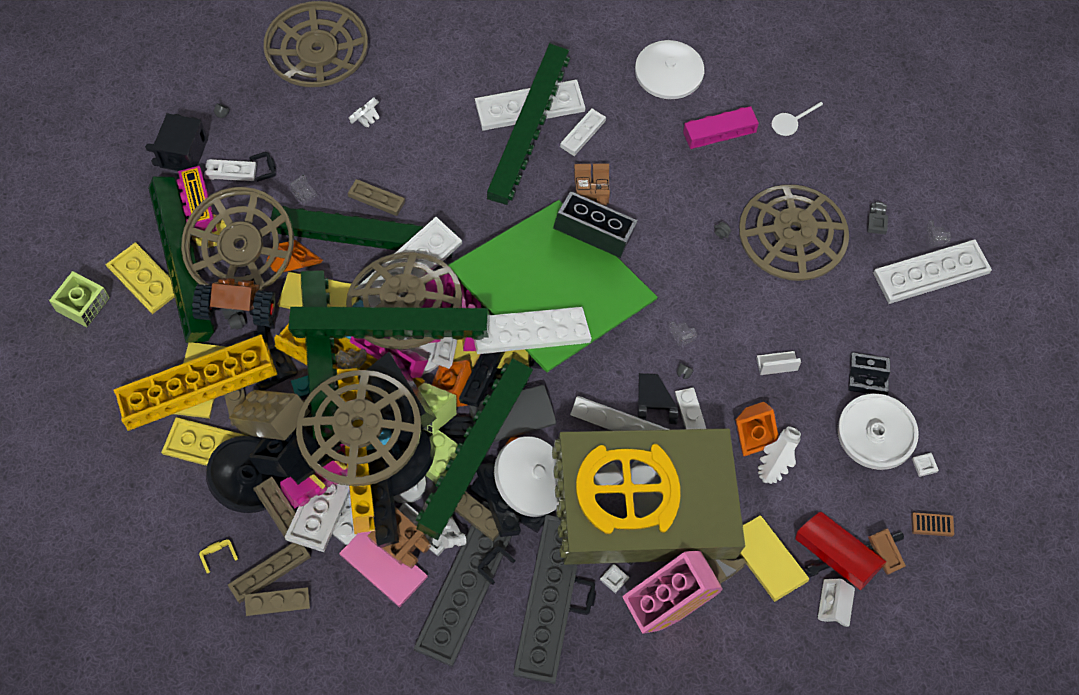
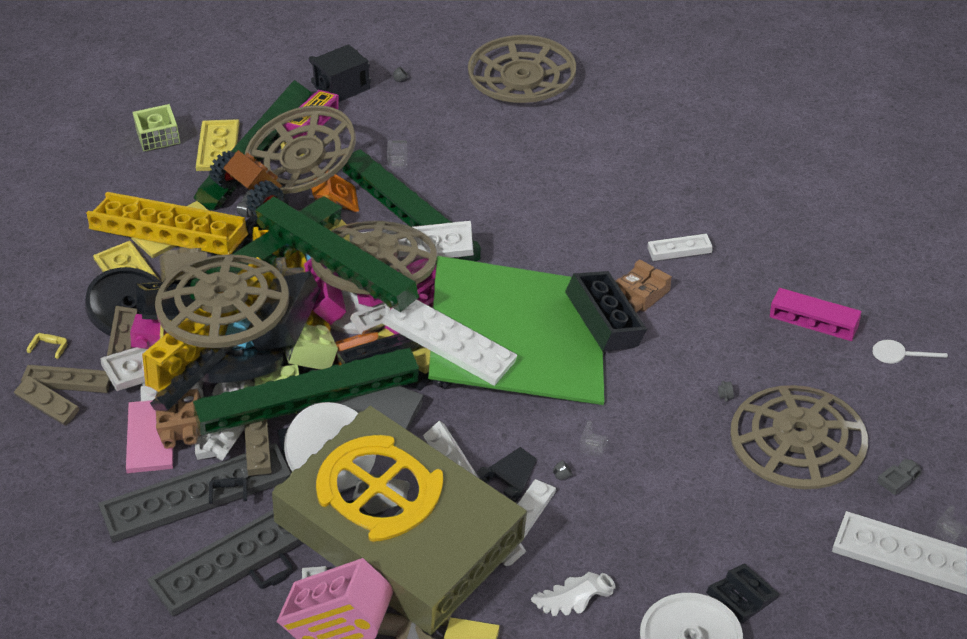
camera: 45 degrees right, 20 degrees down
(230, 170) = (361, 114): white plate -> none
(271, 164) = (395, 130): black piece -> none
(366, 113) = (505, 130): white plate -> none
(376, 197) = (449, 193): dark tan plate -> none
(502, 513) = (274, 455): black plate -> none
(504, 108) = (655, 203): white plate -> none
(528, 124) = (631, 210): dark green brick -> none
(669, 69) = (818, 249): white dish -> none
(756, 428) = (572, 553): orange slope -> none
(778, 363) = (658, 522): white panel -> none

